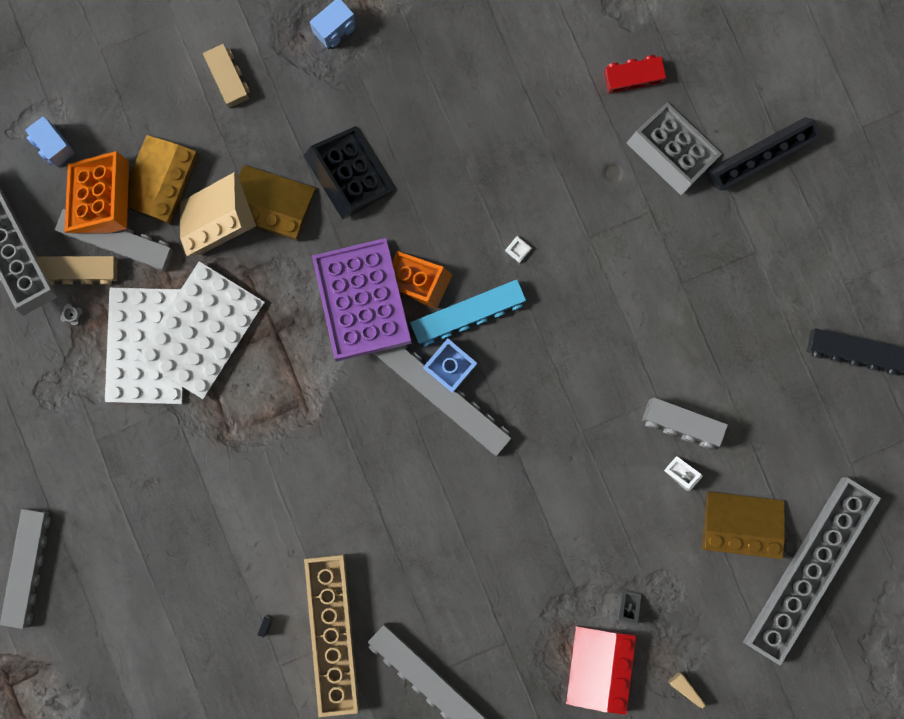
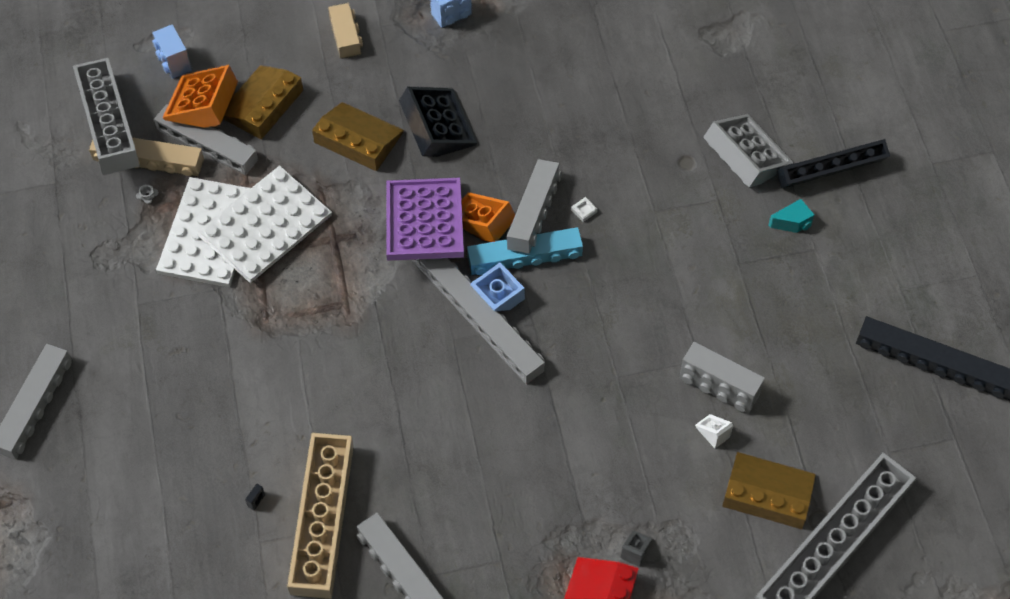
camera: 10 degrees right, 25 degrees down
(214, 216) = (304, 130): tan slope -> none
(468, 263) = (533, 206): none -> light grey brick
(634, 74) = (720, 86): red brick -> none
(731, 223) = (792, 218): none -> teal slope

